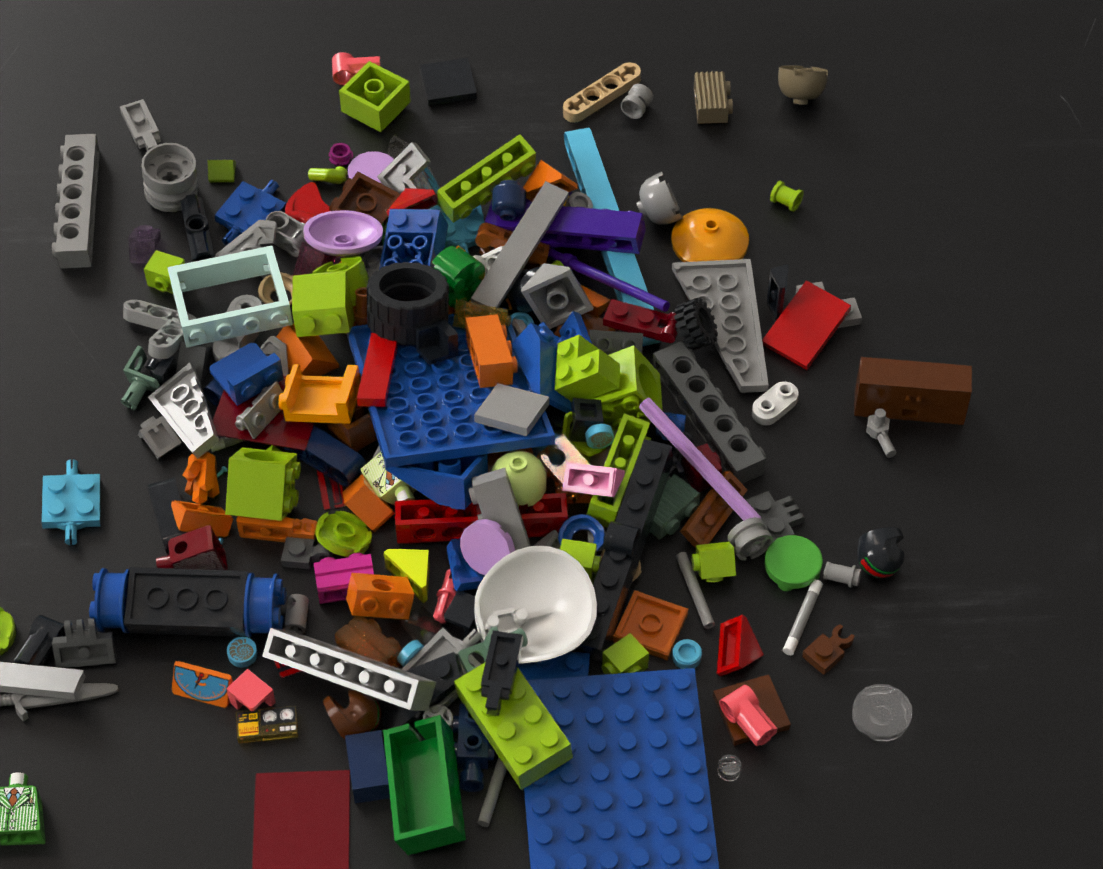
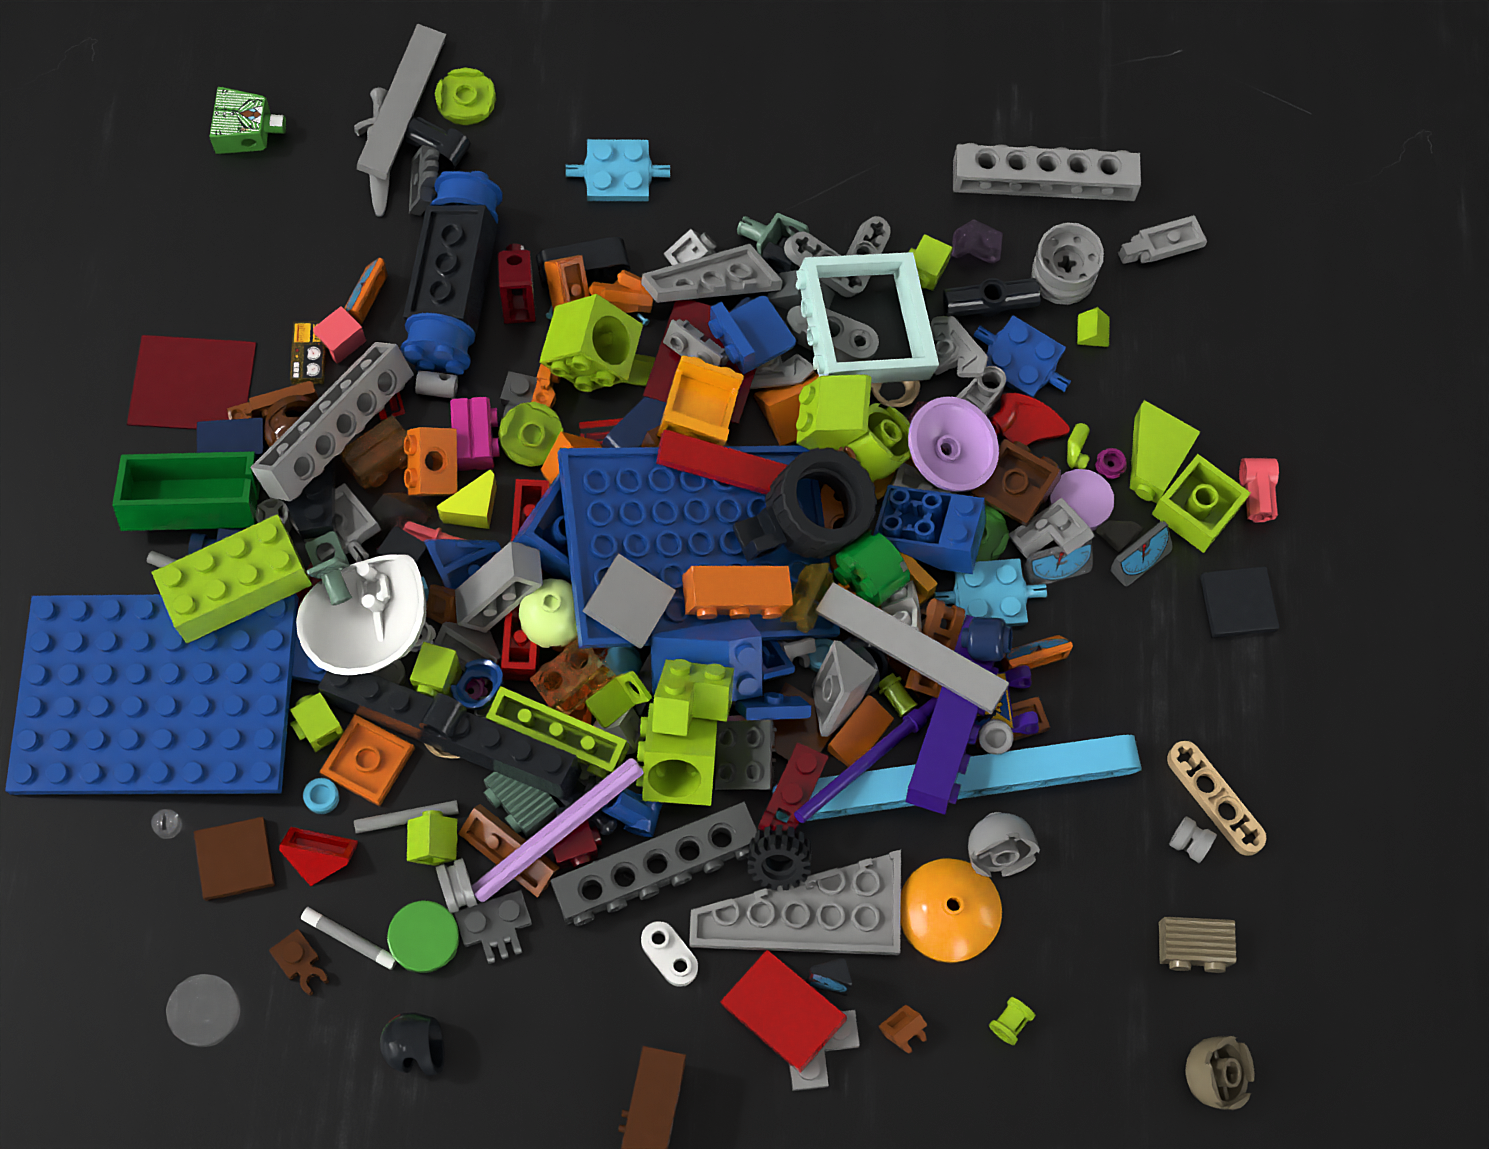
camera: 90 degrees right, 15 degrees up
(242, 652) = (395, 330): medium azure tile -> none
(326, 741) = (261, 404): none -> dark orange hinge
(330, 123) = (1157, 450): none -> lime slope
(409, 652) = (363, 494): medium azure tile -> none
(412, 134) = (1142, 554): none -> slope
(415, 199) = (1011, 531): red slope -> none
(477, 183) = (1031, 618): lime brick -> none
(485, 545) = (463, 569): lavender tile -> none
(500, 669) = (265, 553): black hinge -> none
(547, 173) = (1027, 696): orange slope -> none
(585, 414) = (629, 696): black panel -> none
(592, 479) = (531, 692): bright pink slope -> none
(599, 436) = (604, 711): medium azure tile -> none
(744, 708) = (221, 841): coral piece -> none
(803, 255) = (903, 1026): none -> dark orange tile
(842, 574) = (398, 994): light grey pin -> none
(878, 429) = (611, 1079): light grey piece -> none

